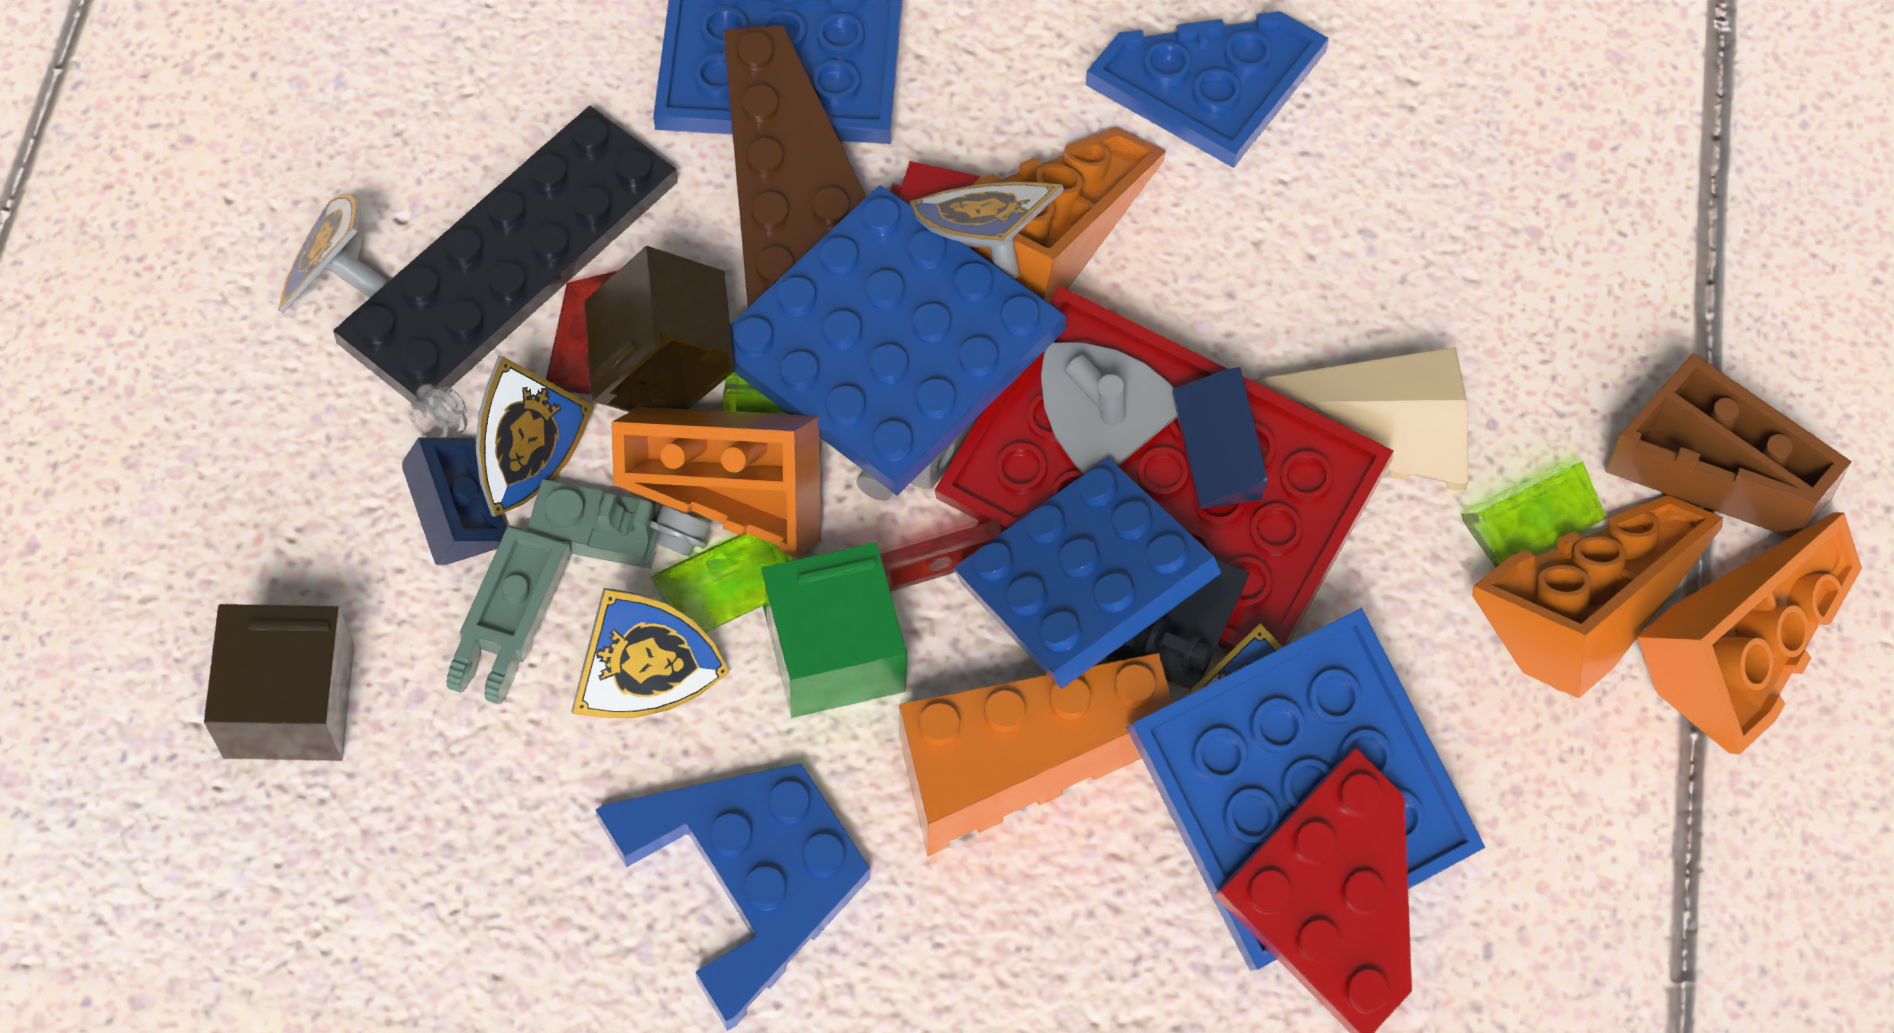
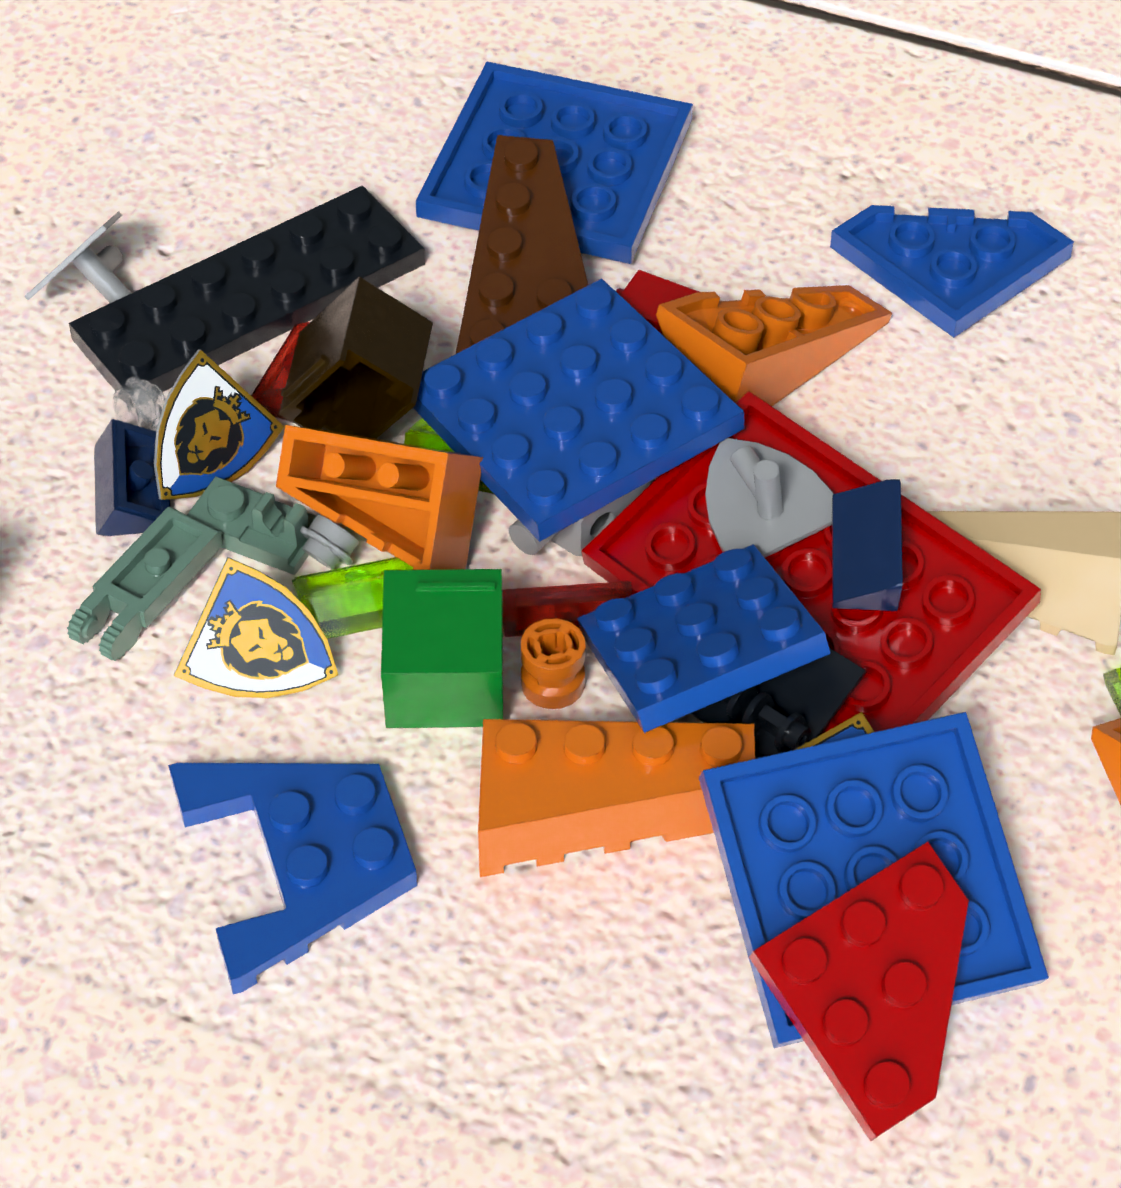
camera: 15 degrees right, 10 degrees down
(945, 633) = (553, 663): none -> orange wheel
(986, 215) = (688, 317): shield -> none

